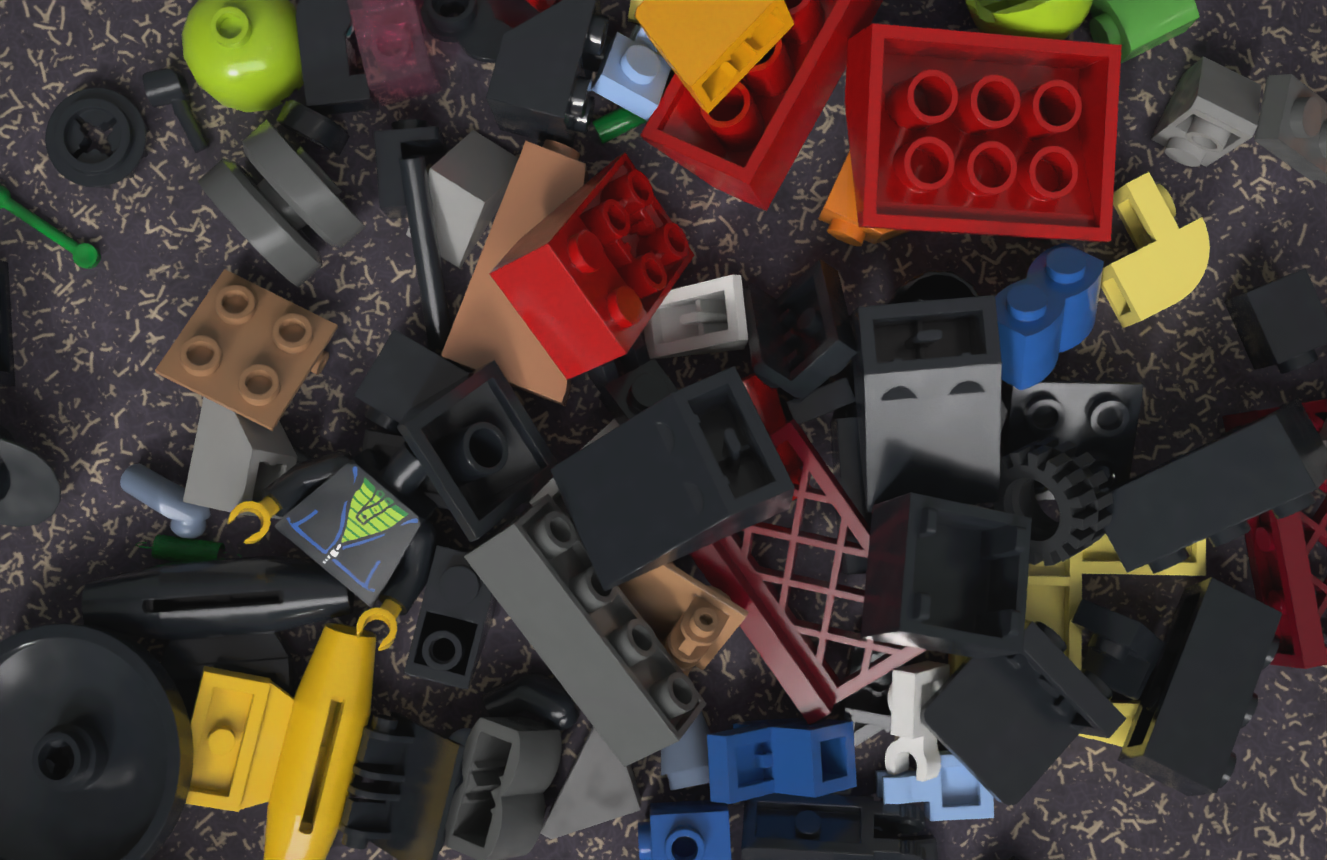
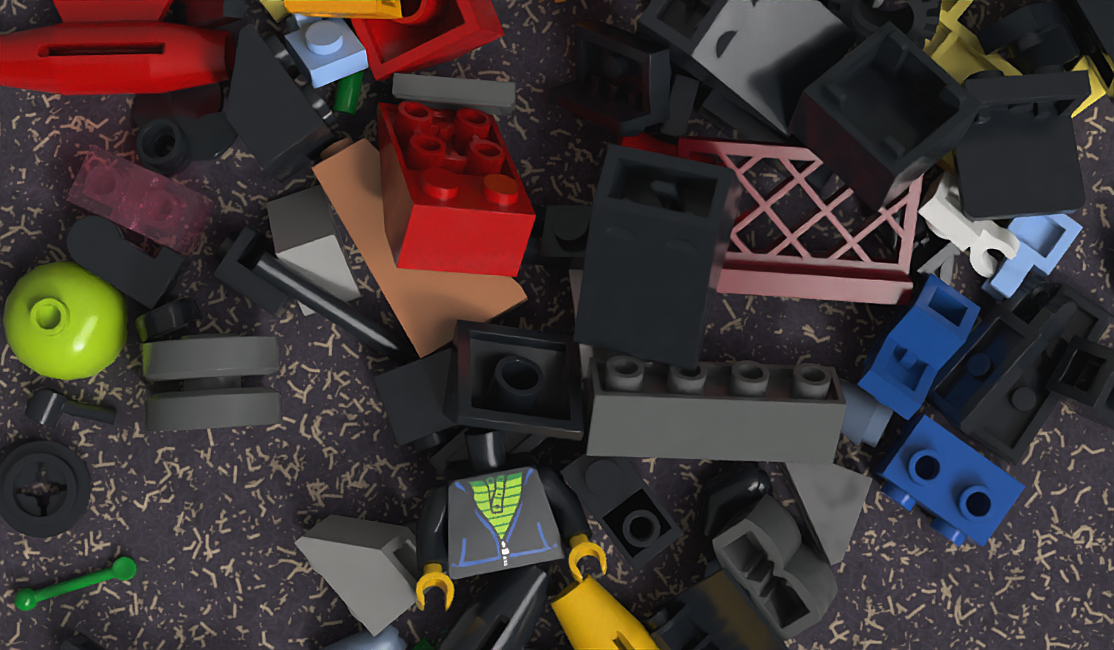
camera: 50 degrees left, 0 degrees up
(248, 349) = (299, 498): medium nougat hinge -> none
(684, 209) = (456, 93): none -> dark grey tile
(684, 614) = (756, 329): medium nougat hinge -> none
(699, 320) = (548, 145): white slope -> none

